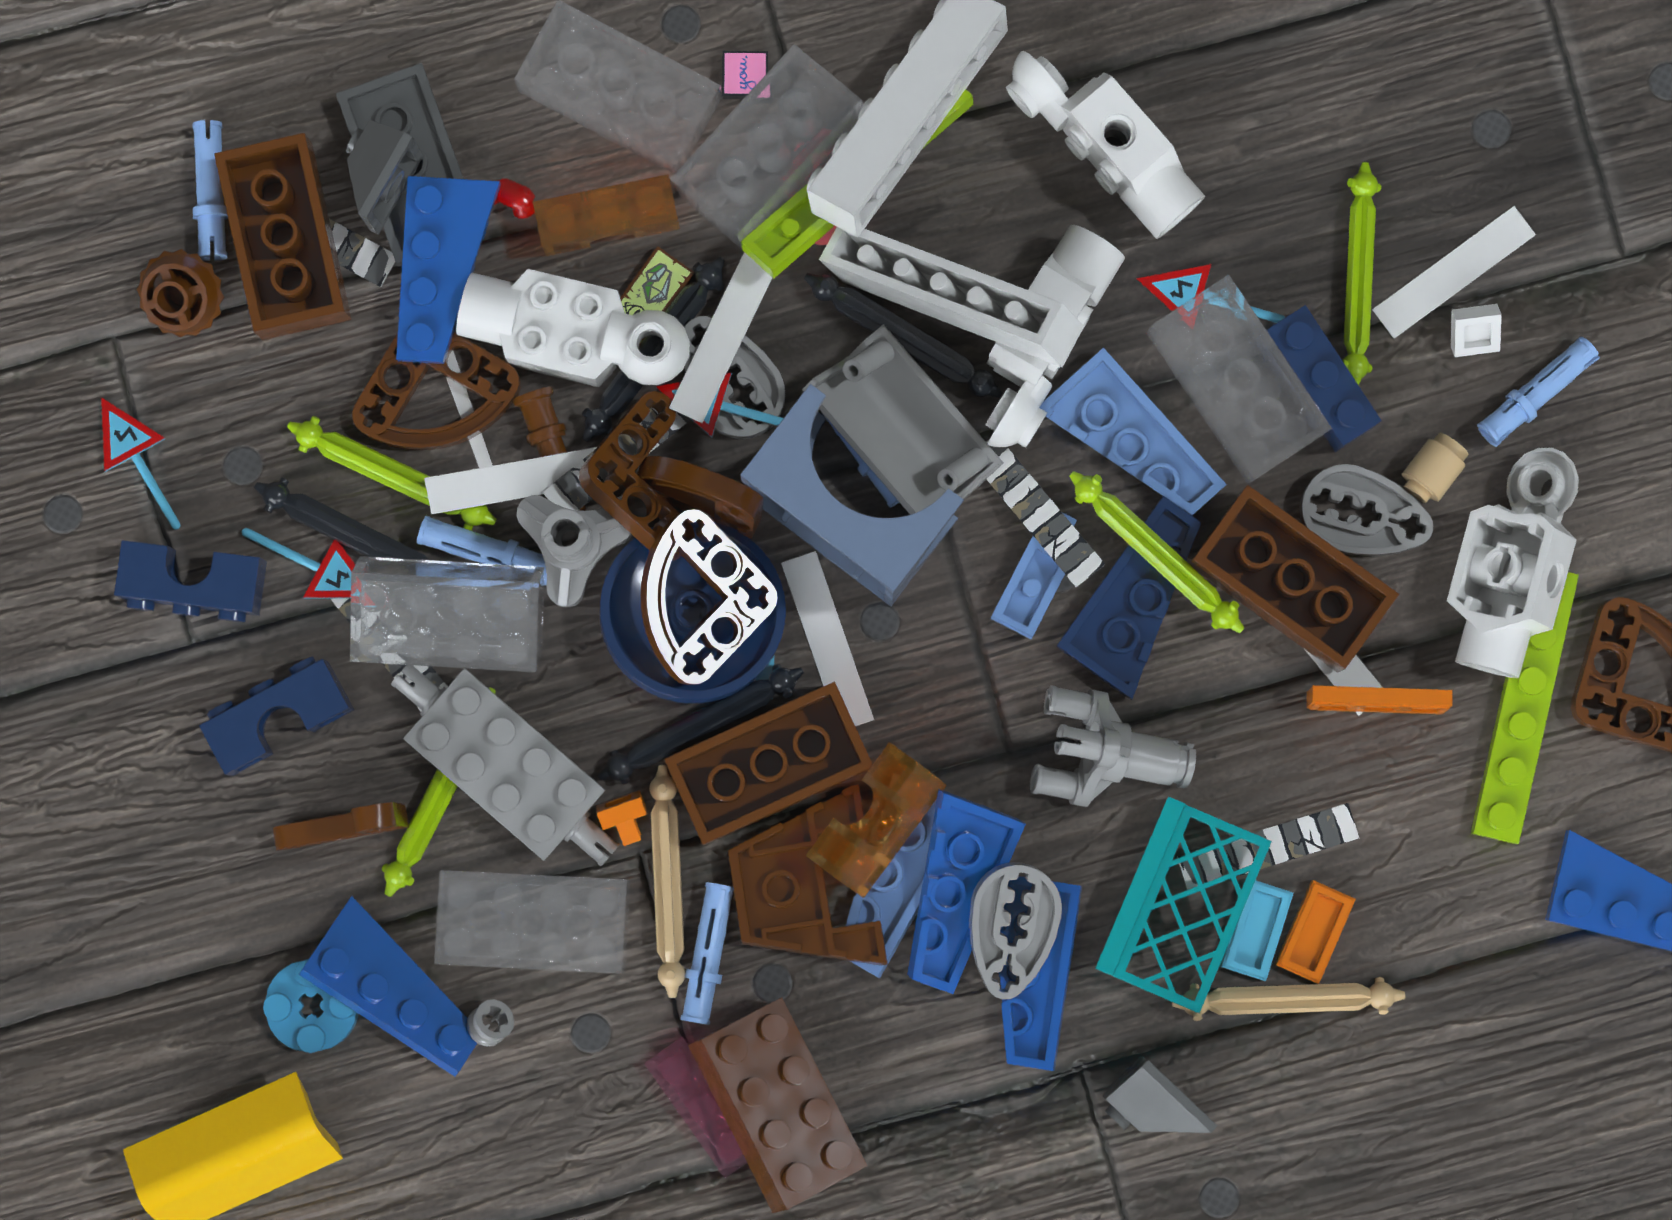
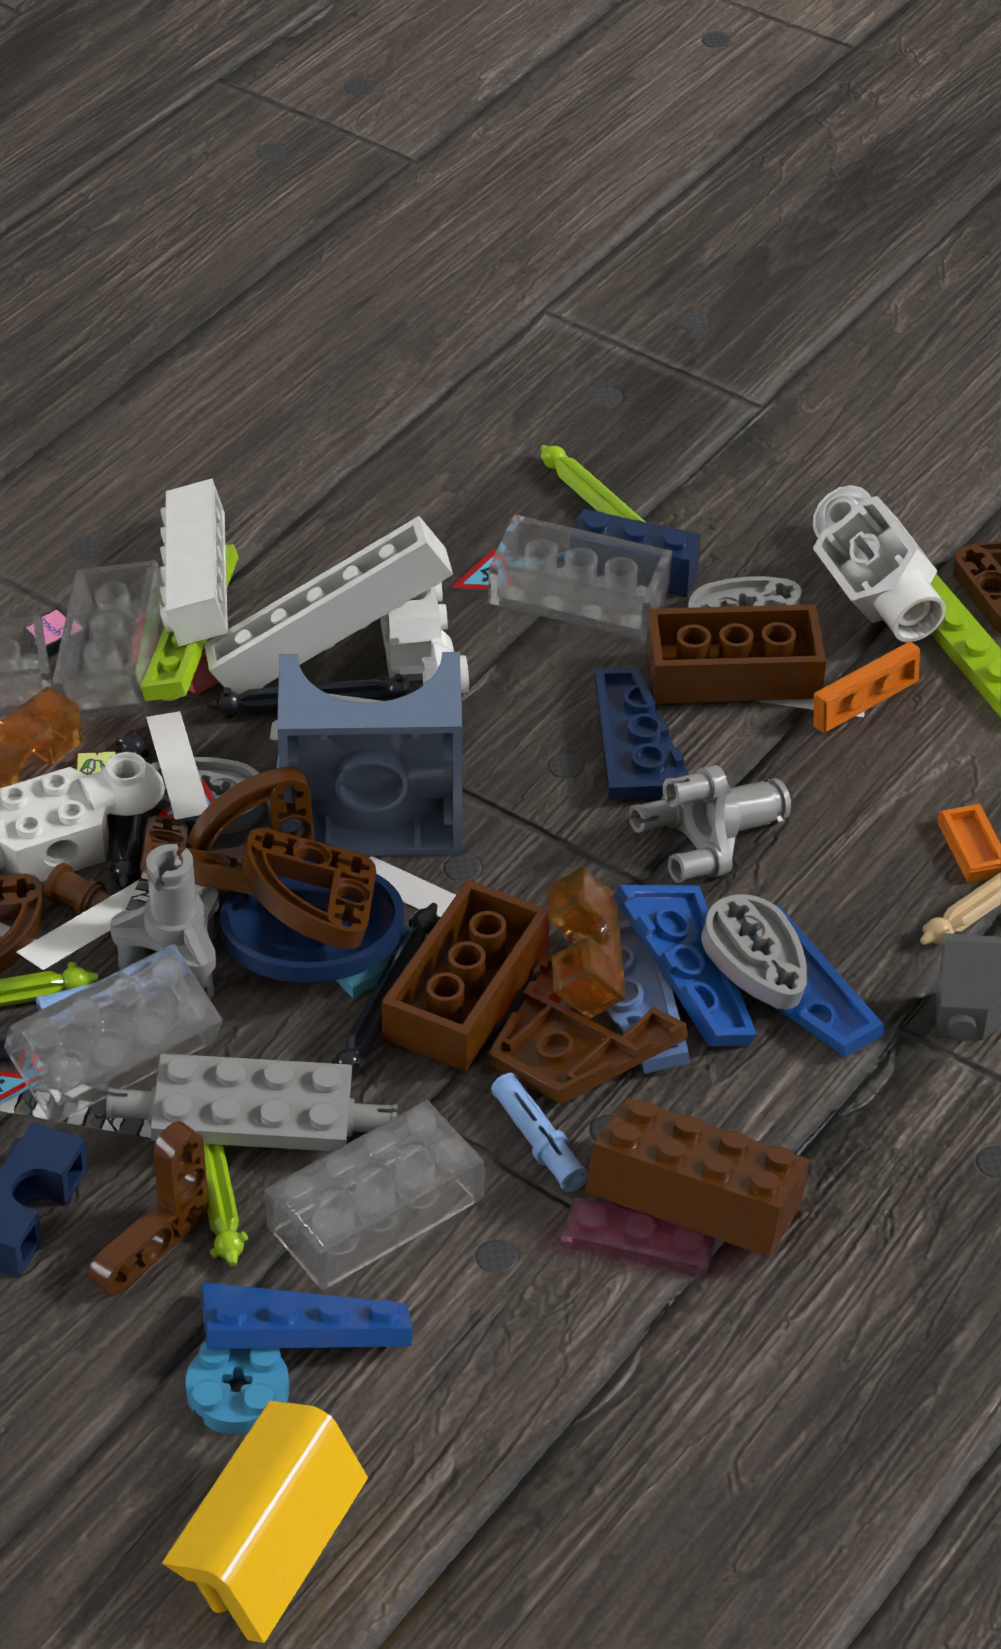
camera: 40 degrees left, 40 degrees down
(500, 1013) = (406, 1287): light grey bush -> none
(623, 814) = (383, 1082): orange tile -> none
(667, 881) = (461, 1107): tan wheel -> none
(1029, 590) = (554, 767): medium blue hinge -> none
(1043, 518) = (527, 725): sticker -> none
(1126, 427) = (535, 654): medium blue wing -> none
(1140, 171) = (350, 503): white brick -> none
(1145, 889) = (832, 894): teal fence -> none
(1156, 552) = (624, 691): lime wheel -> none
(1258, 931) = (932, 867): medium azure tile -> none
(1288, 842) = (885, 822): sticker -> none
(1434, 468) = (763, 552): tan brick -> none
(1454, 272) = (662, 471): white sticker -> none
(1475, 330) = (709, 478): white plate -> none
(1524, 403) = (783, 496): light blue pin -> none

